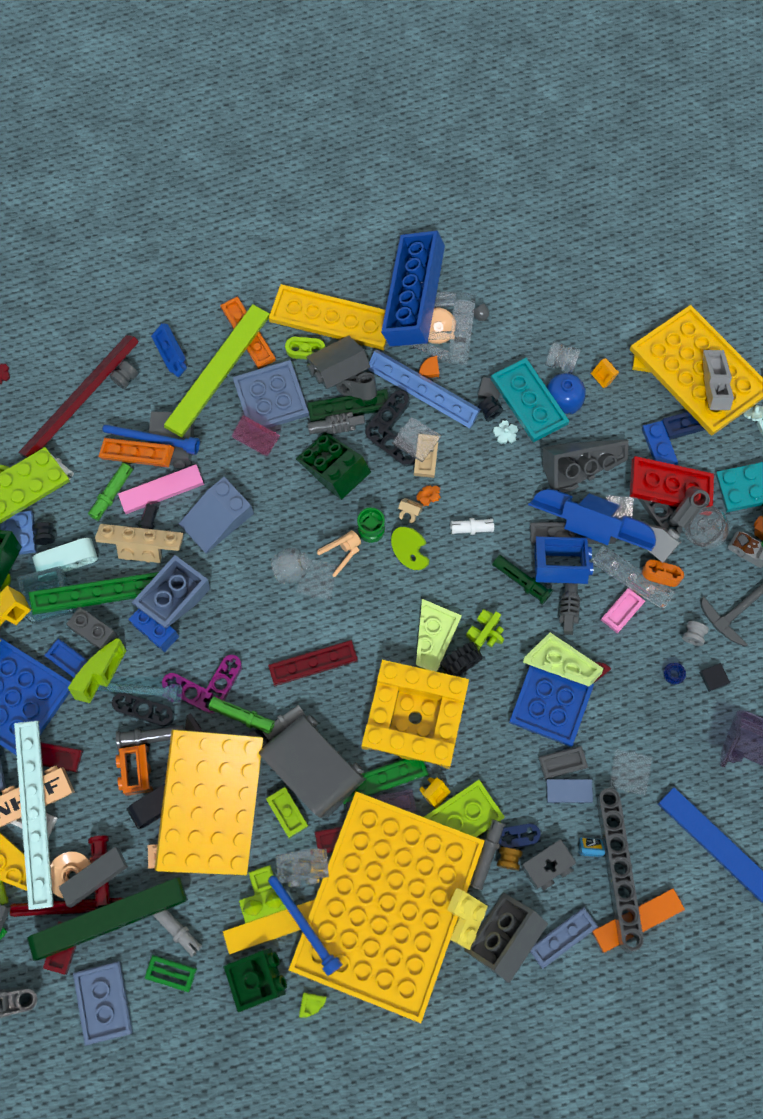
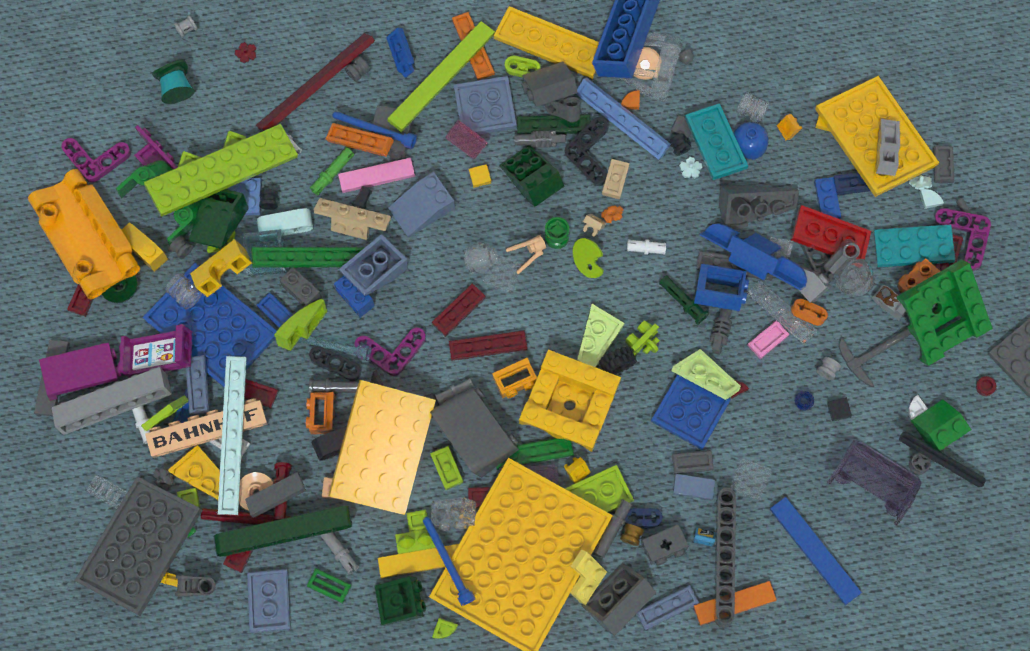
camera: 10 degrees right, 0 degrees up
(249, 718) = (422, 381): bright green pin -> none
(274, 627) = (458, 310): none -> dark red plate
(276, 473) = (480, 176): none -> yellow tile
(348, 710) = (512, 390): none -> light orange window
(416, 439) = (609, 163): clear piece -> none

